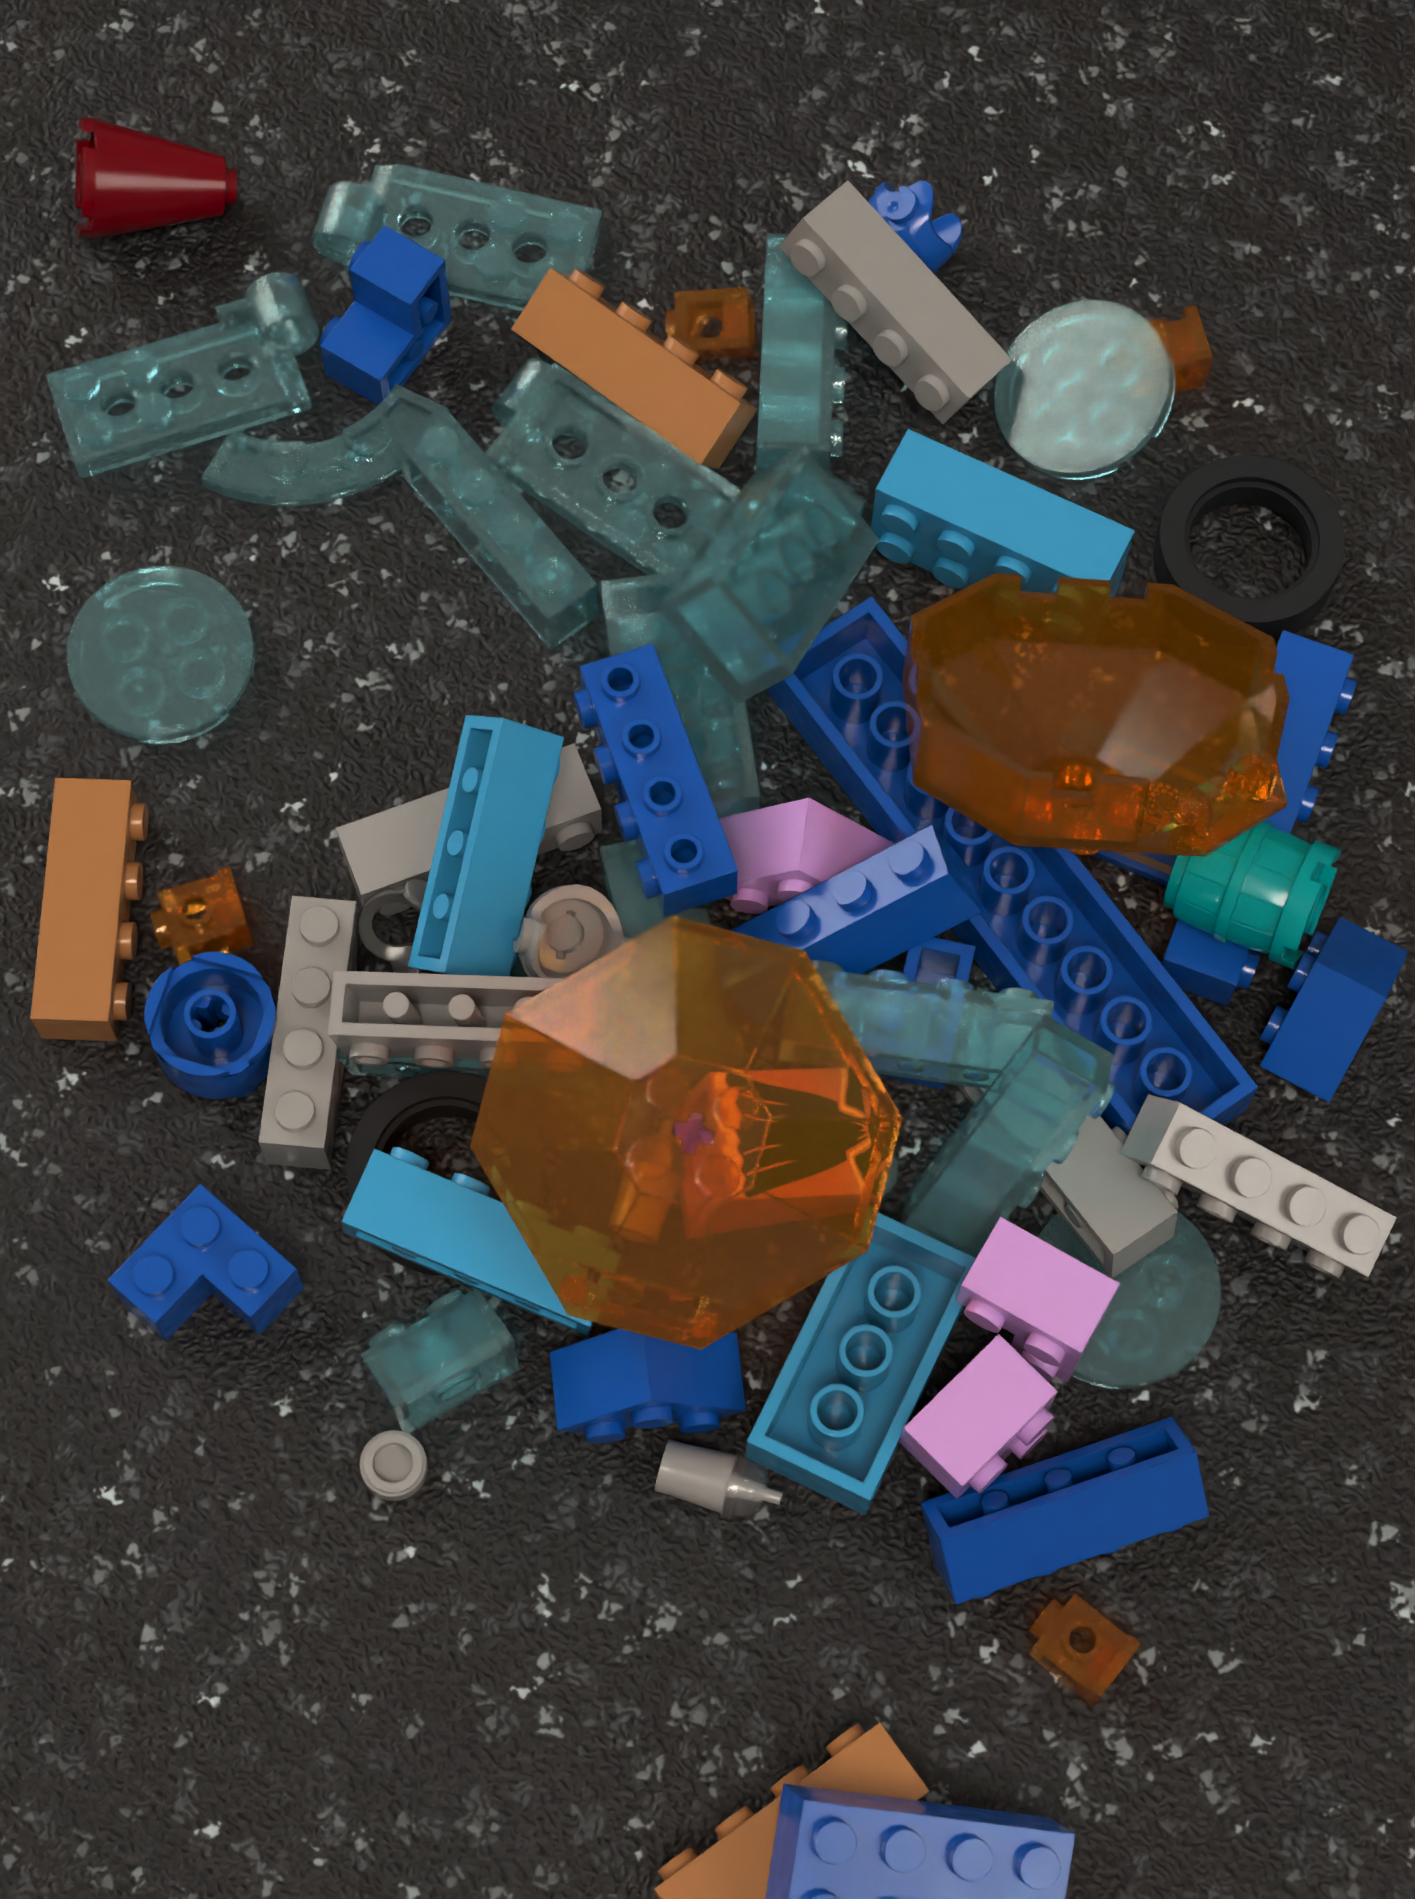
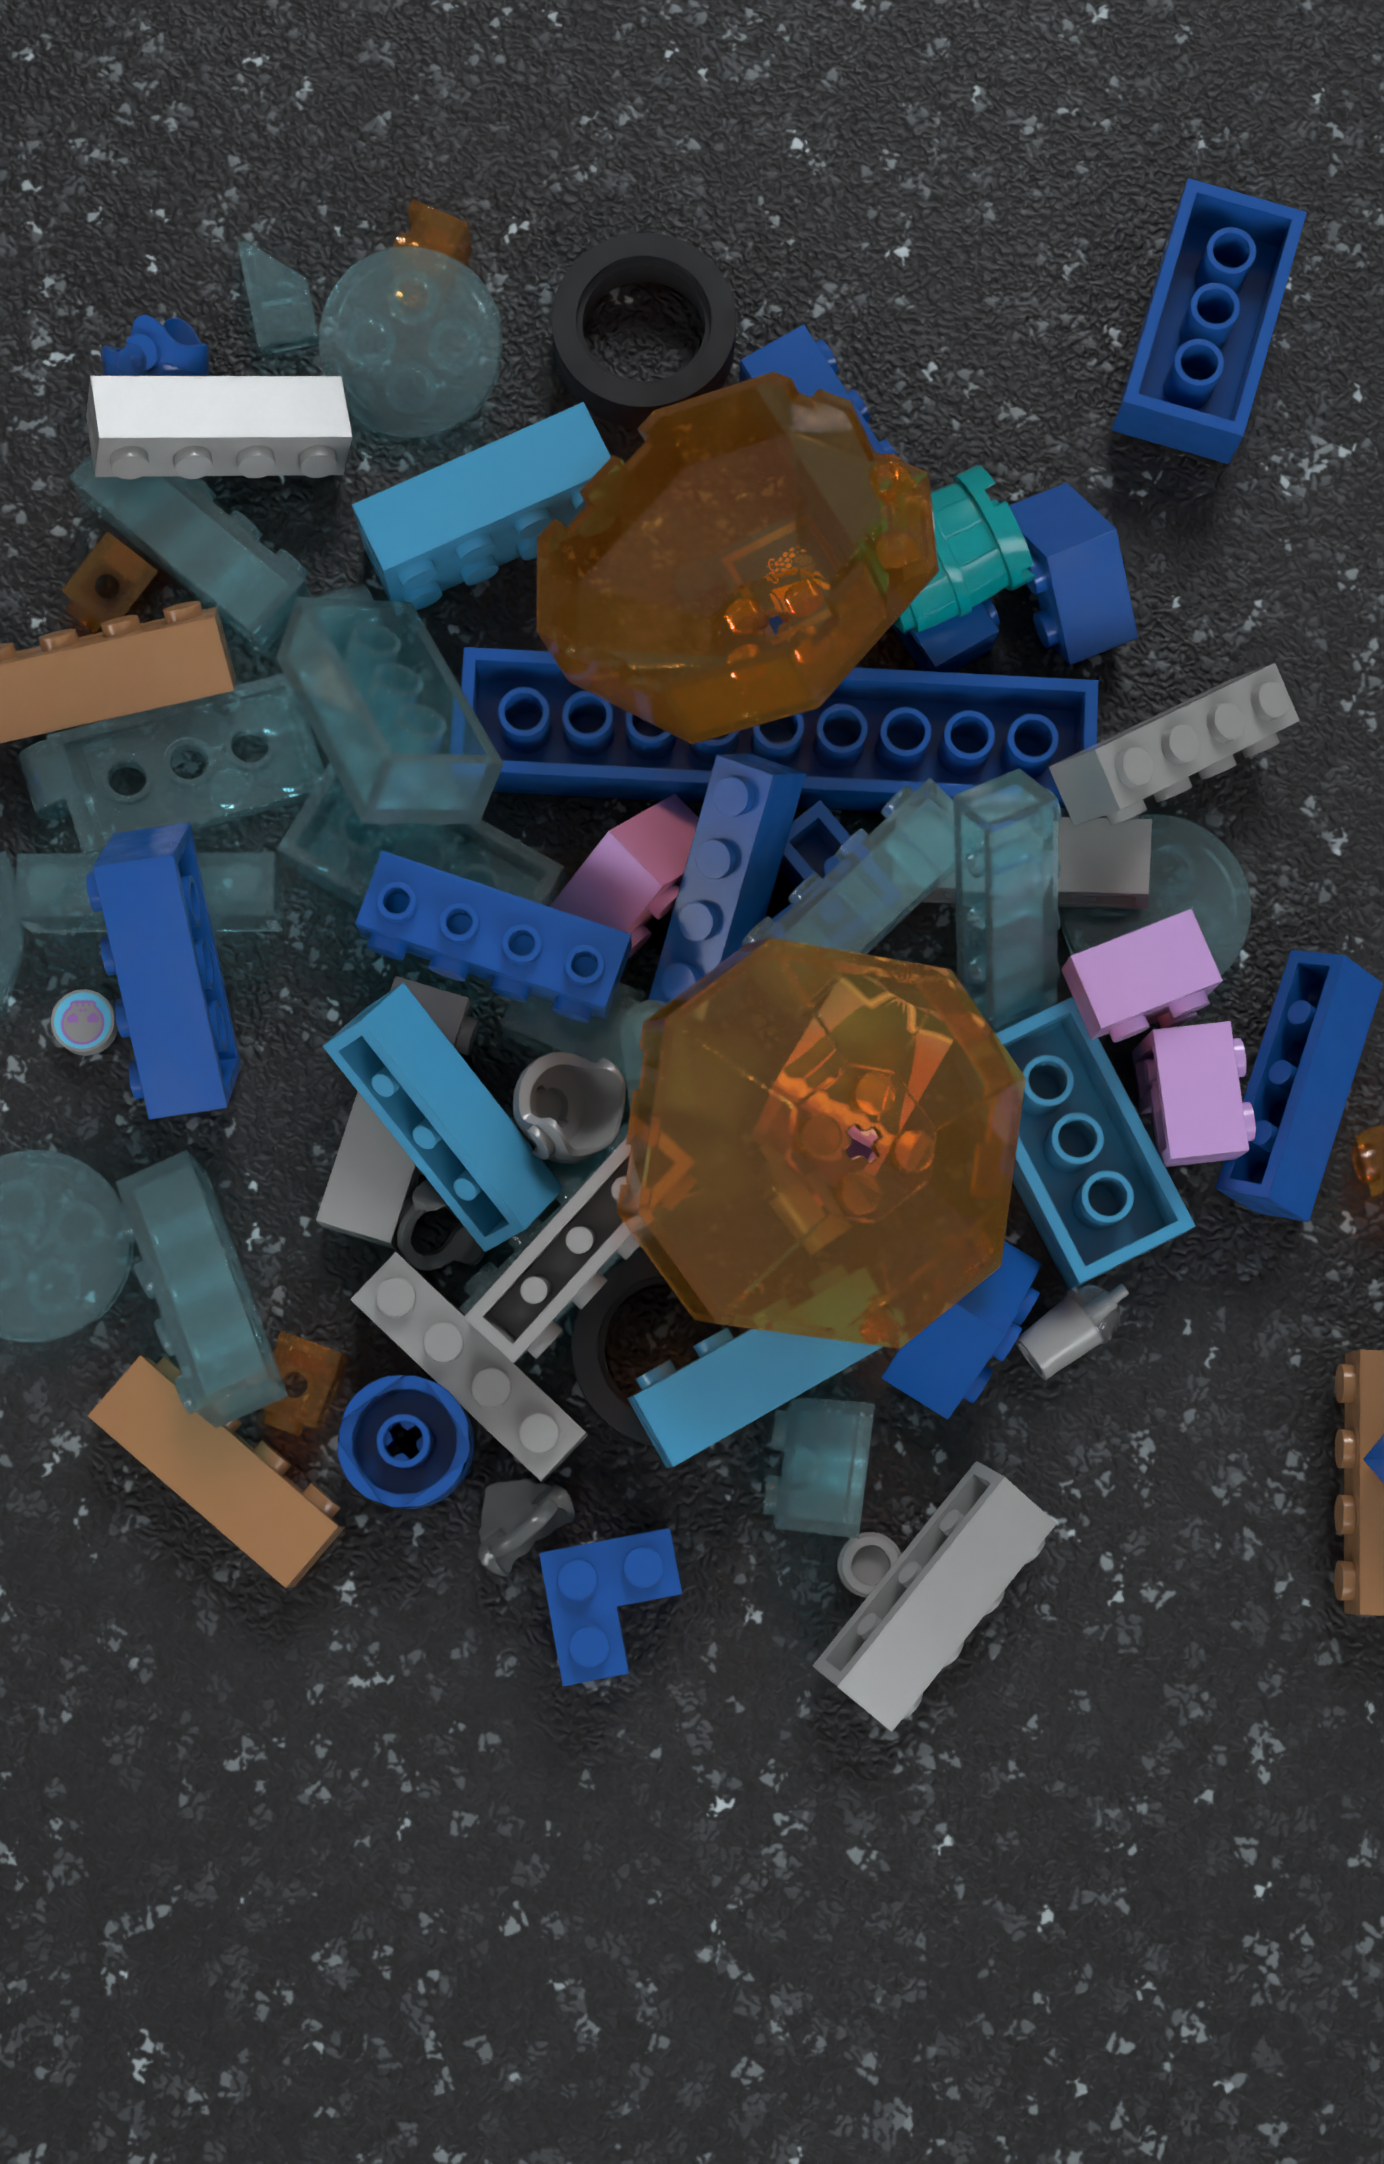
camera: 55 degrees left, 10 degrees up
(214, 785) = (199, 1291): none -> clear light blue brick
(220, 1159) = (516, 1517): none -> dark grey piece
(362, 561) = (84, 1022): none -> tile
(403, 1529) = (935, 1595): none -> light grey brick
(437, 569) = (165, 970): none -> blue brick
(1036, 280) = (278, 302): none -> clear light blue tile

